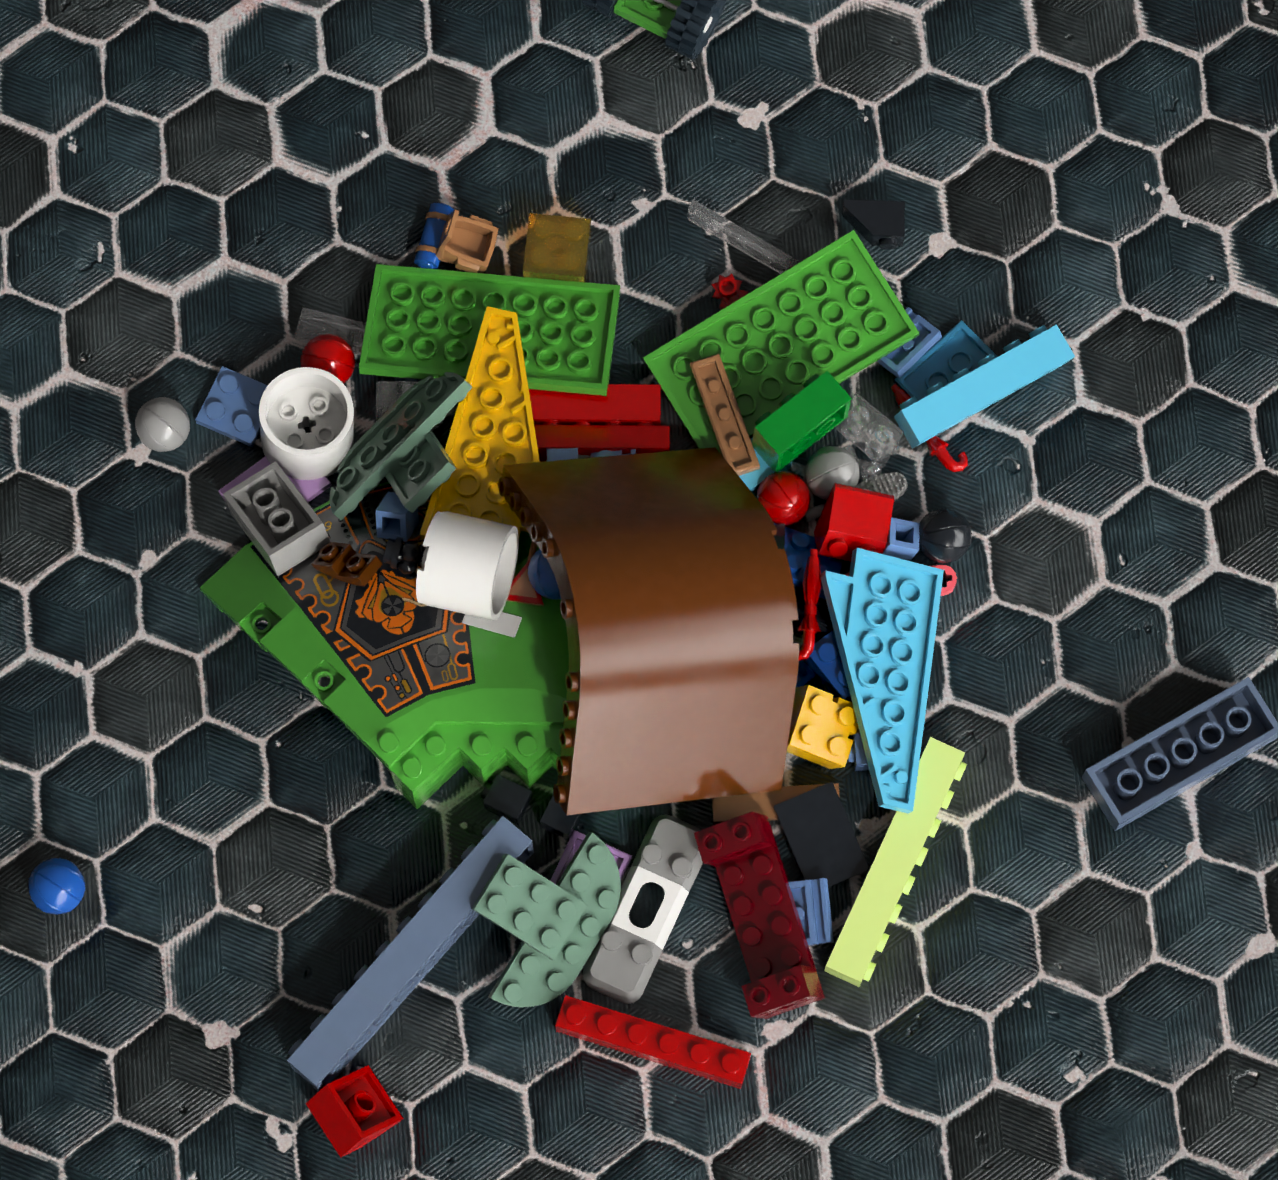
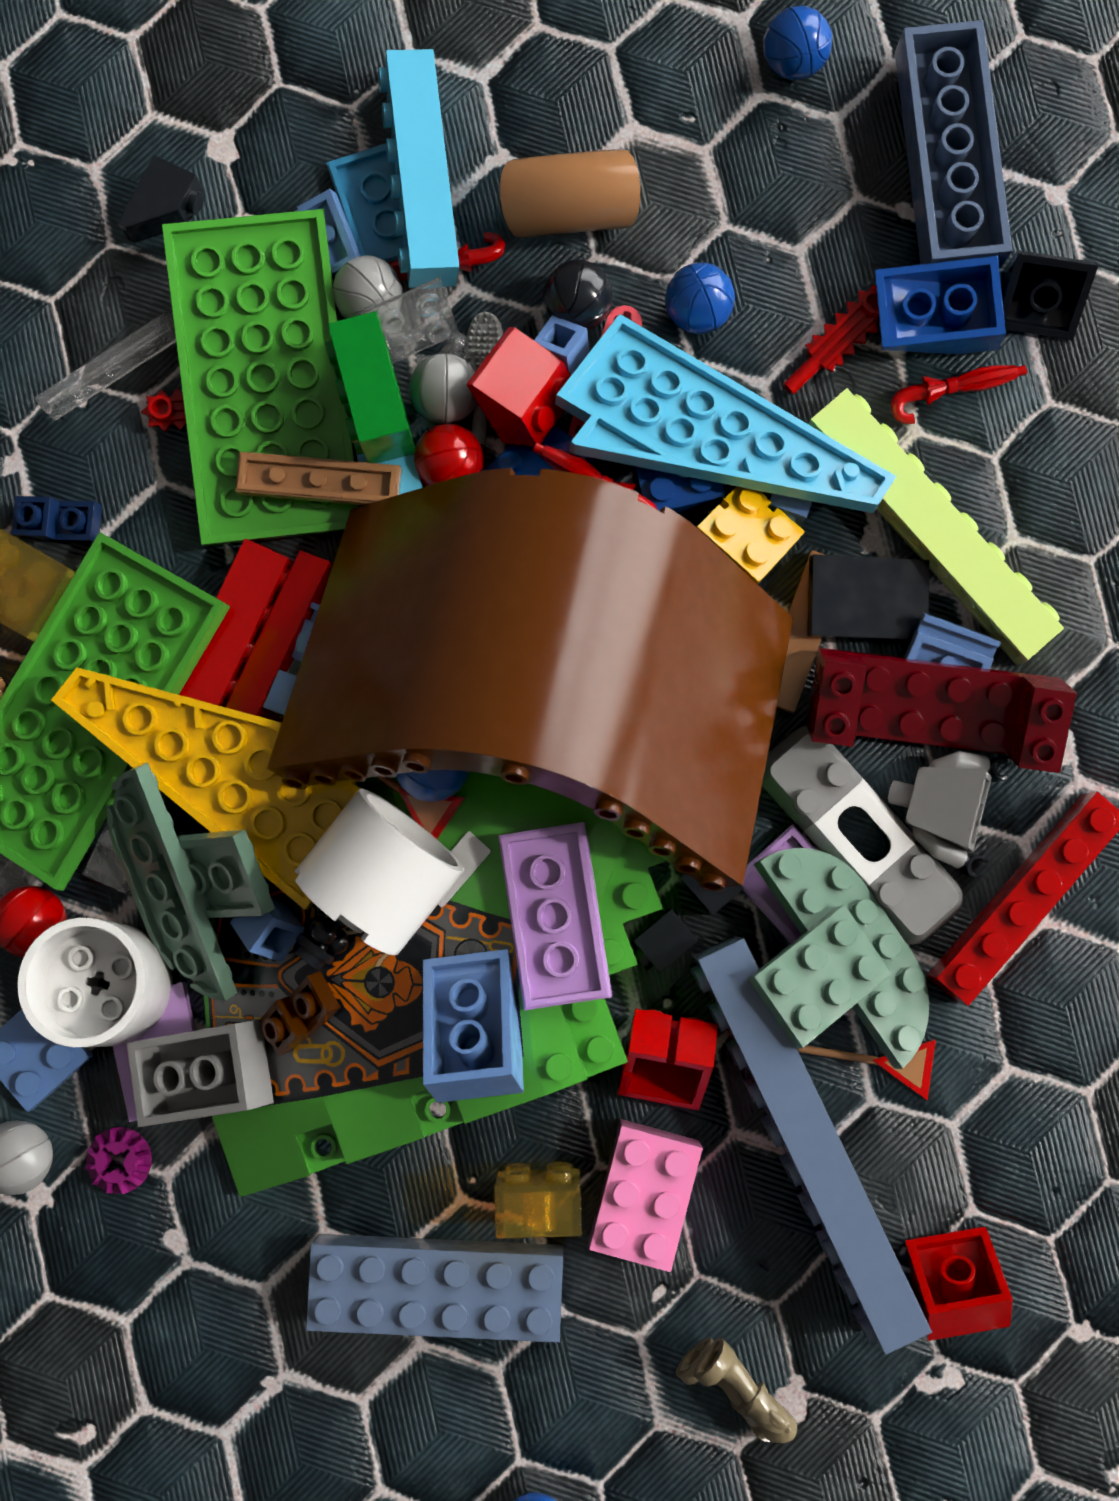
camera: 60 degrees left, 10 degrees up
(191, 508) = (137, 1161): none -> magenta gear
(196, 747) = (435, 1288): none -> sand blue brick
(208, 1002) = (718, 1364): none -> dark tan piece
(284, 783) = (538, 1201): none -> clear yellow brick
(322, 862) = (645, 1195): none -> bright pink brick
(389, 672) = (471, 1027): none -> medium blue slope
(424, 832) = (668, 1059): none -> red piece
(489, 695) = (555, 916): none -> lavender tile
(494, 1015) = (914, 1075): none -> piece
(616, 252) = (56, 520): none -> dark blue slope
(695, 957) = (949, 805): none -> light grey torso
(879, 386) = (364, 284): none -> light grey piece
(983, 622) = (700, 298): none -> blue piece
(1006, 737) = (838, 339): none -> red piece
(1013, 494) = (570, 193): none -> medium nougat brick
(1021, 848) = (931, 389): none -> red piece
(1057, 794) = (941, 307): none -> blue slope
(1105, 868) = (1045, 293): none -> black slope
(1207, 609) = (797, 42): none -> blue piece

